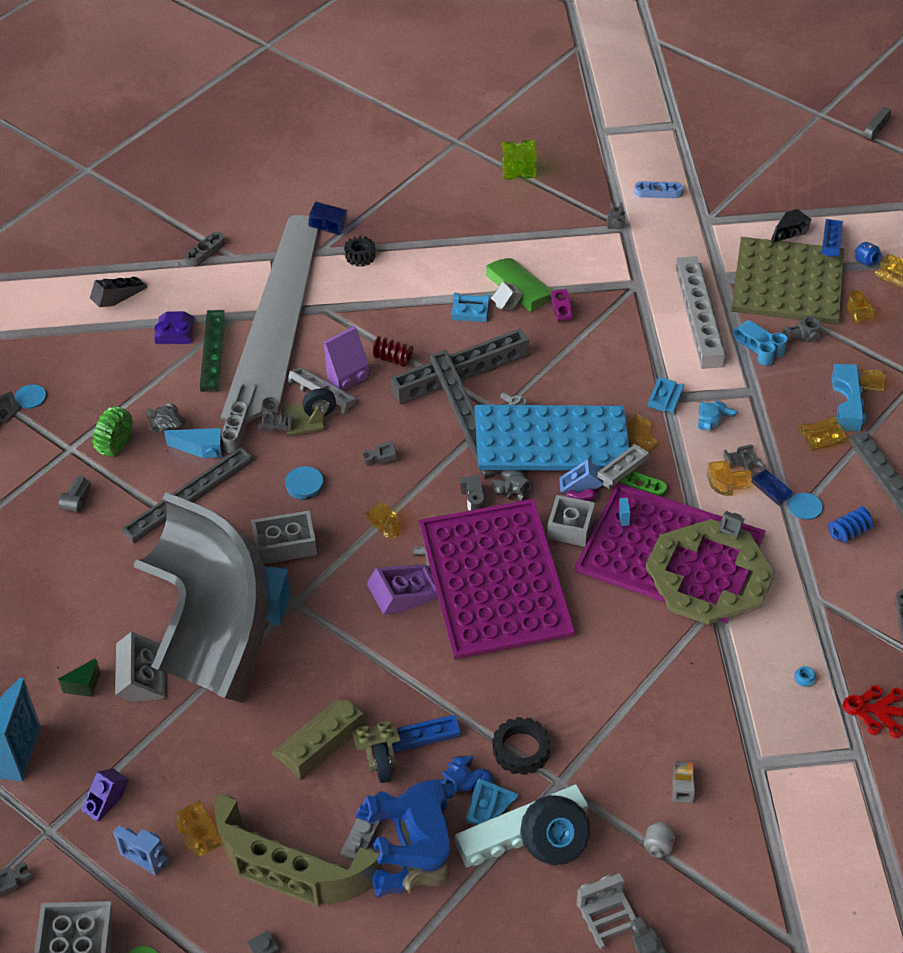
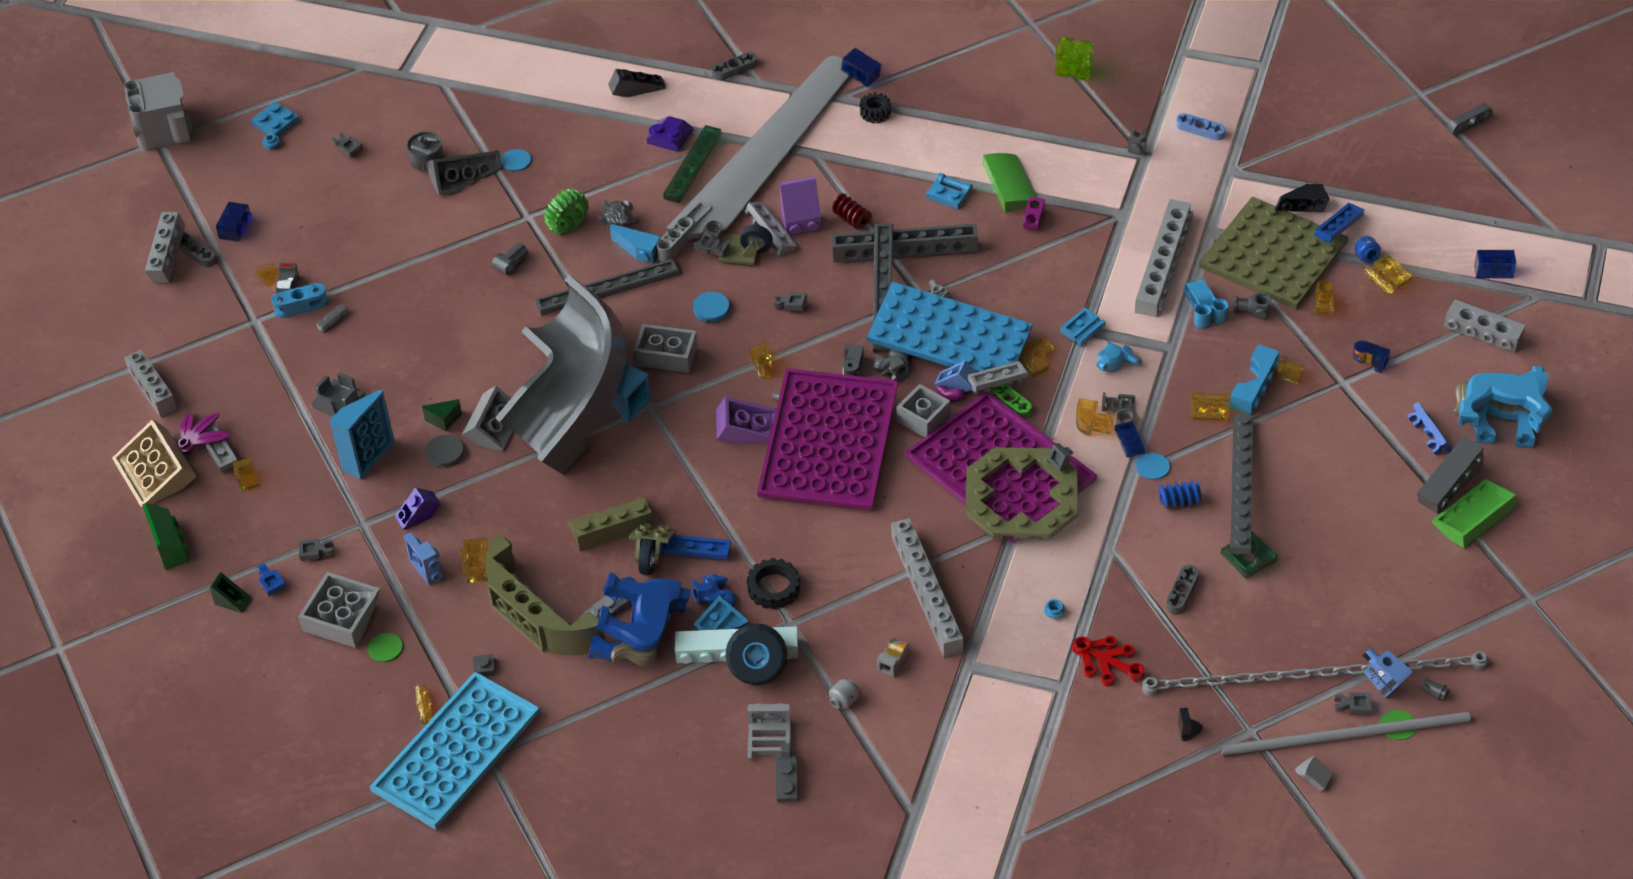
camera: 25 degrees right, 0 degrees up
(102, 719) = (444, 451): none -> dark grey tile
(507, 296) = (986, 190): light grey brick -> none
(624, 511) = (973, 417): dark azure tile -> none
(676, 698) = (927, 588): none -> light grey brick

